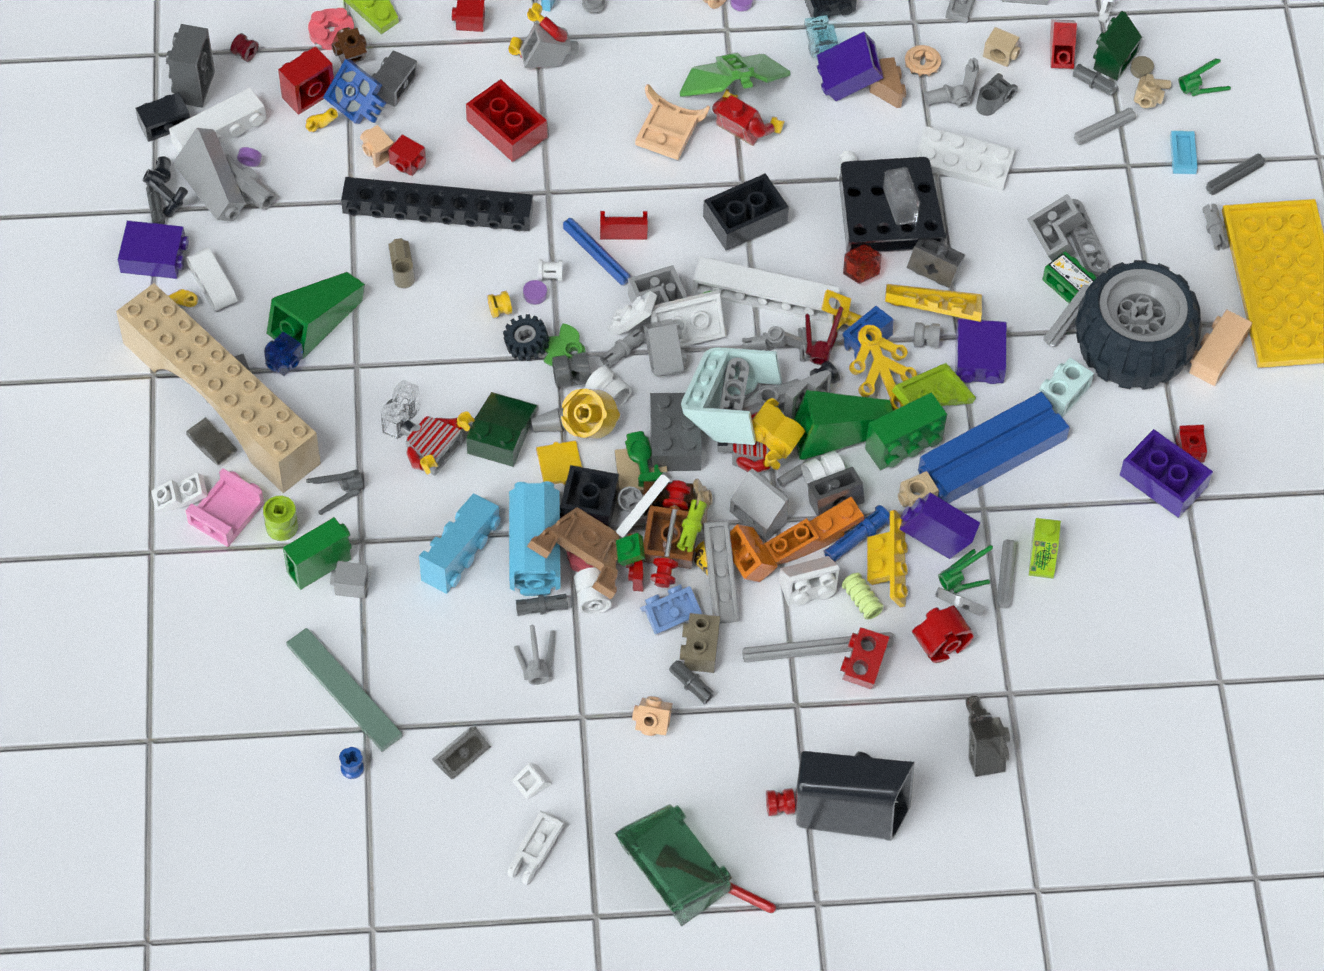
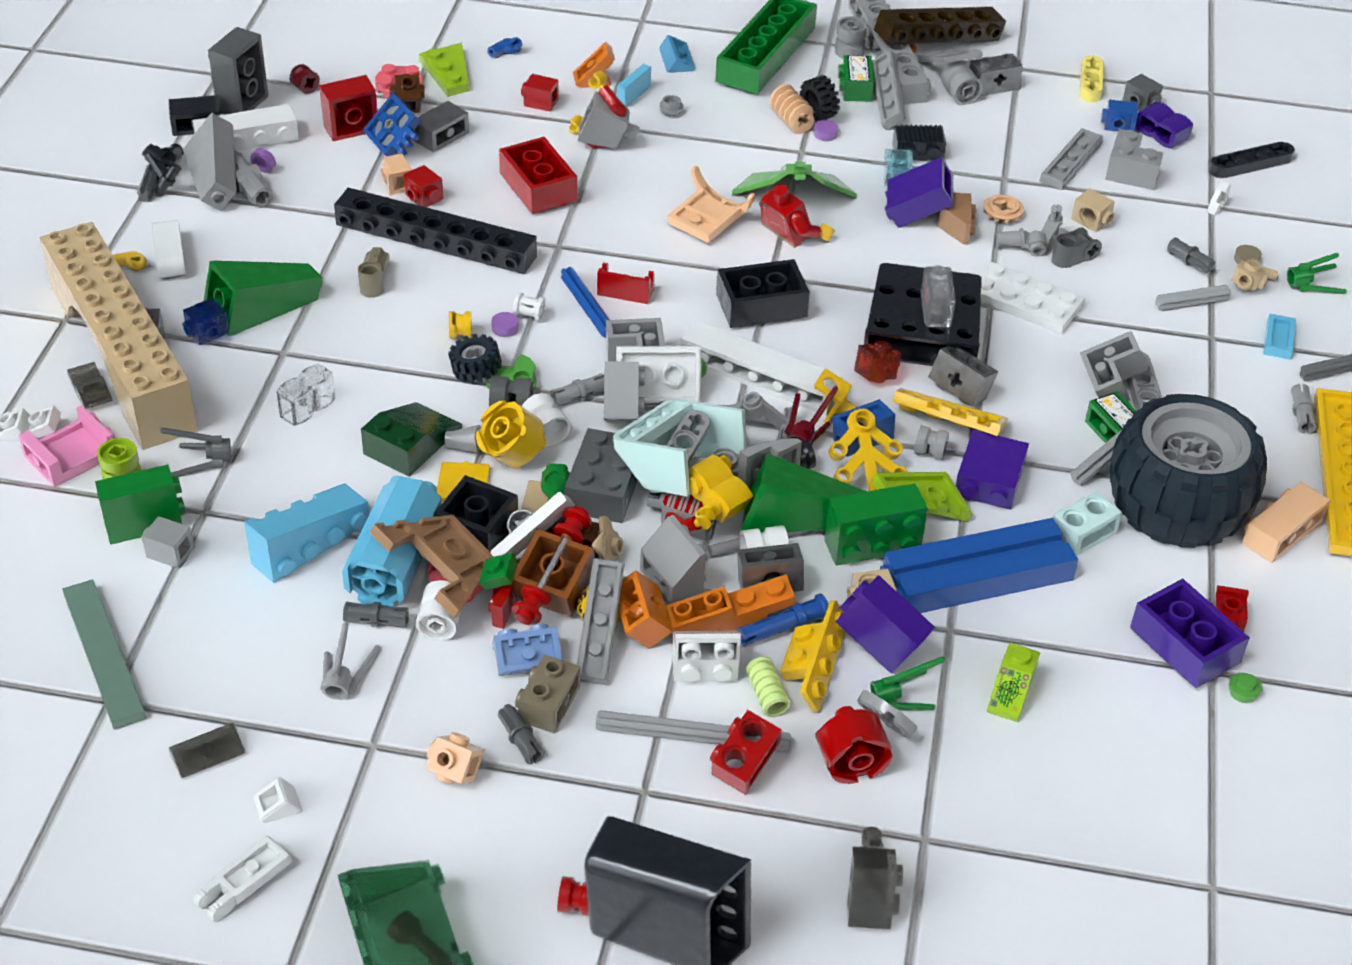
camera: 15 degrees right, 15 degrees down
(152, 249) = (123, 213): dark purple brick -> none
(321, 120) = (350, 146): yellow arm -> none
(351, 763) = (69, 725): blue bush -> none
(434, 441) = (329, 430): torso -> none
(632, 314) = (597, 353): white hinge -> none
(692, 525) = (578, 557): lime pin -> none
(1006, 573) = (957, 702): light grey axle -> none
(1062, 43) = (1162, 217): red slope -> none
(1117, 46) = (1223, 227): dark green slope -> none
(1214, 508) = (1244, 687): none -> bright green plate

